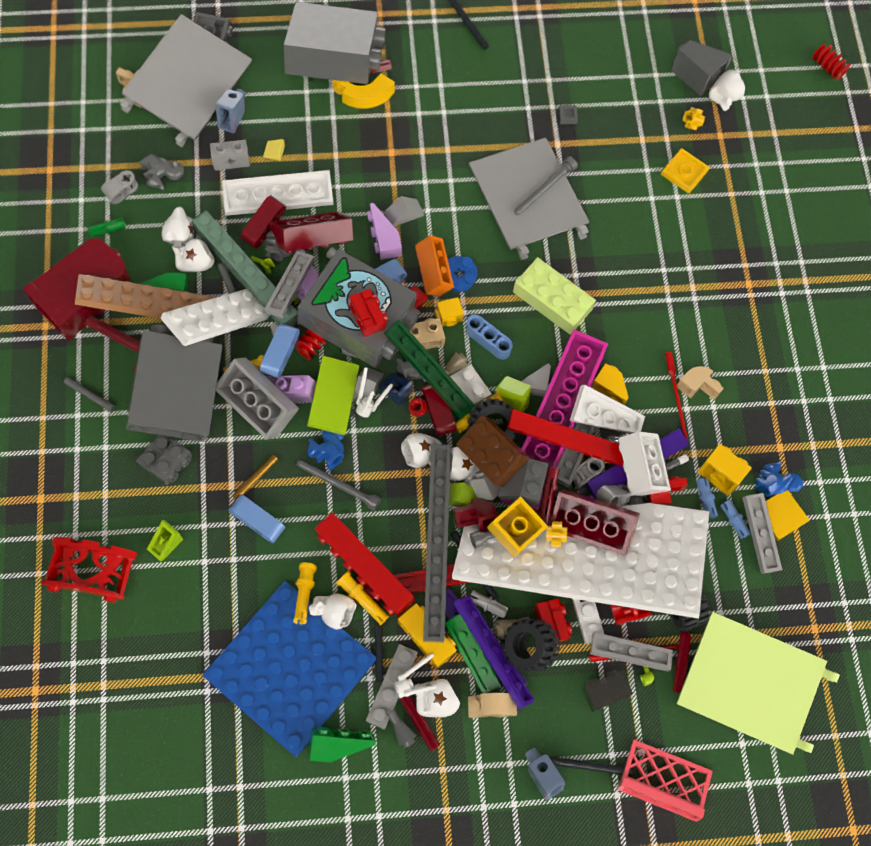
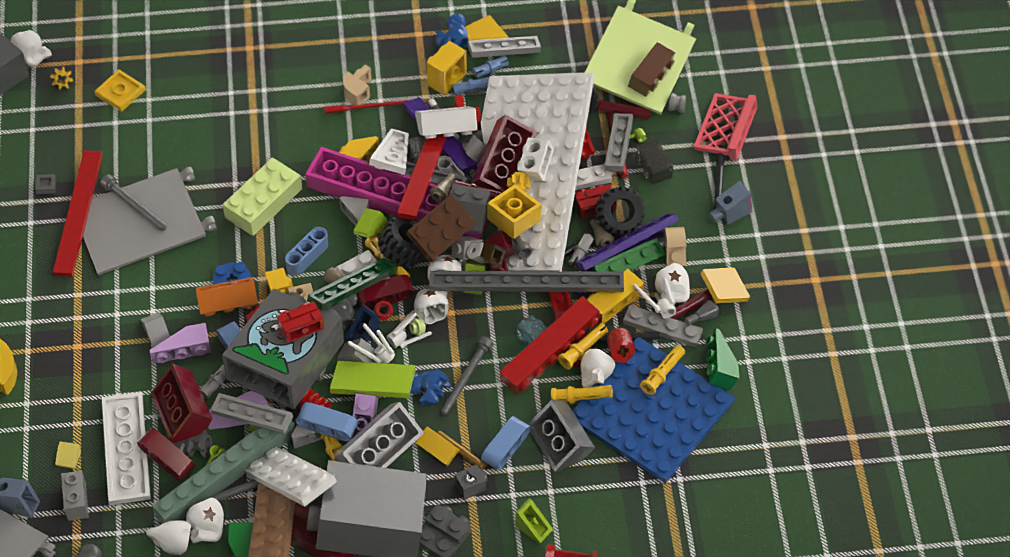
camera: 85 degrees left, 15 degrees down
(215, 484) = (471, 481): none -> dark grey brick
(259, 455) = (437, 446): none -> yellow tile
(260, 572) = (560, 435): none -> dark grey slope
(319, 673) = (658, 375): none -> yellow pin
(356, 635) = (620, 345): none -> red piece
(386, 548) = (530, 329): none -> clear light blue brick
(387, 420) = (397, 336): none -> white plant
(396, 438) = (417, 326): none -> yellowish green plate
(438, 758) = (725, 285): none -> yellow tile
(469, 501) = (486, 253): none -> dark brown leg
(535, 142) = (77, 213): none -> red tile
(548, 455) = (441, 190): none -> dark tan cone
(583, 555) = (536, 154): none -> white brick
(693, 724) = (677, 103): none -> light grey wheel
(732, 694) = (652, 69): none -> reddish brown brick

